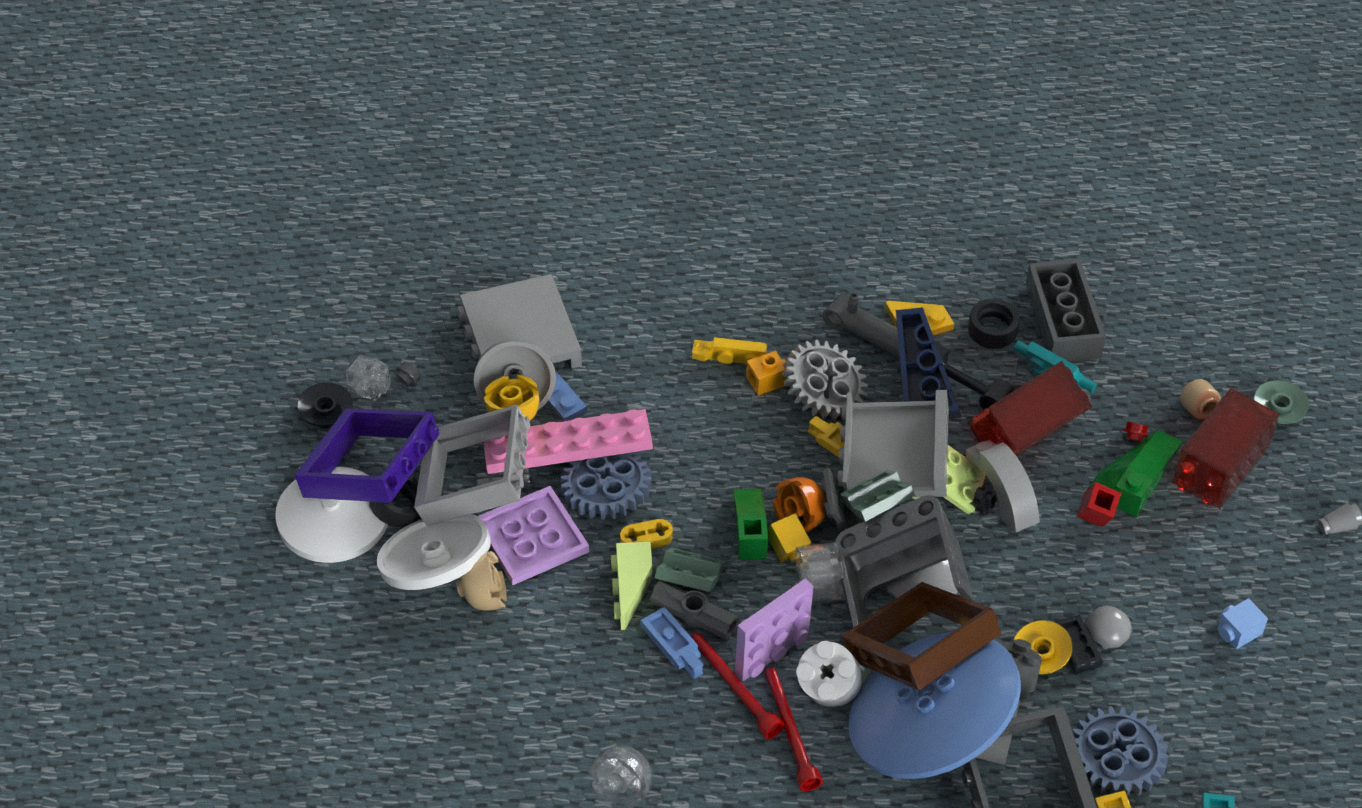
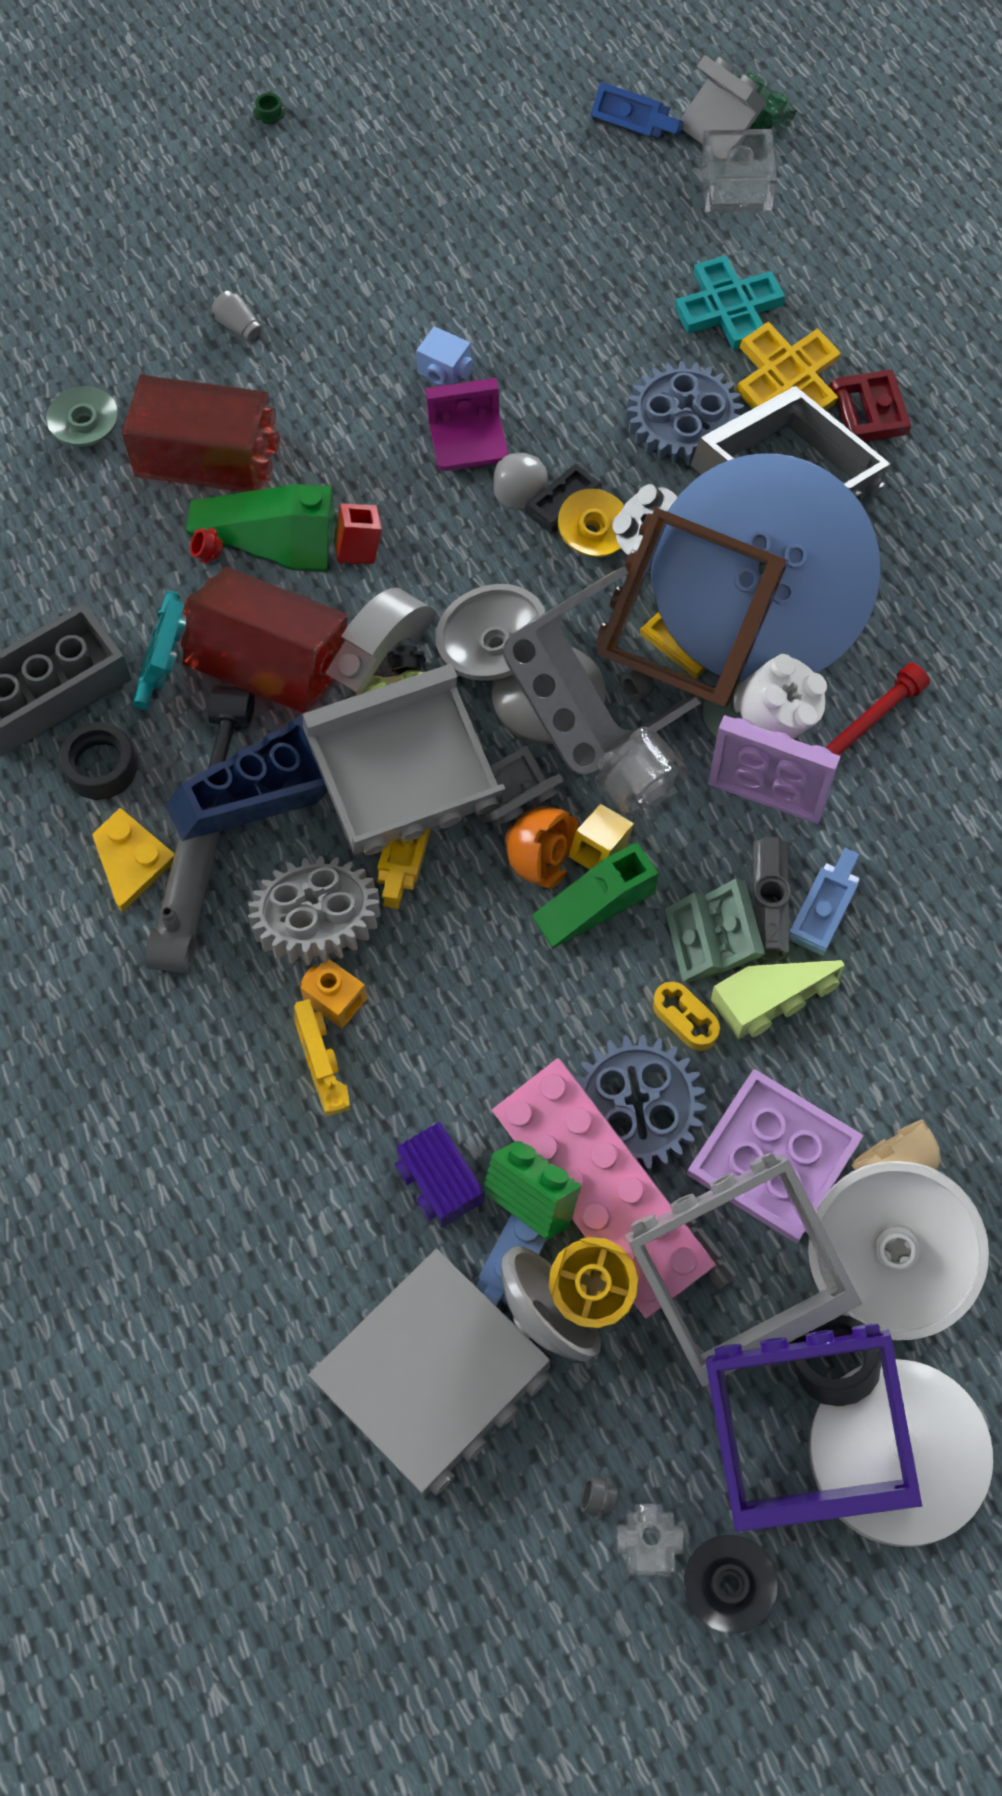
camera: 115 degrees left, 15 degrees up
(584, 402) = (532, 1189): none -> green brick
(625, 377) = (439, 1175): none -> dark purple brick
(768, 723) = (869, 750): red piece -> none
(876, 495) = (506, 740): sand green slope -> none
(984, 542) = (480, 623): none -> light grey dish
(1167, 611) = (466, 424): none -> magenta bracket
(1199, 398) = (120, 495): tan head -> none

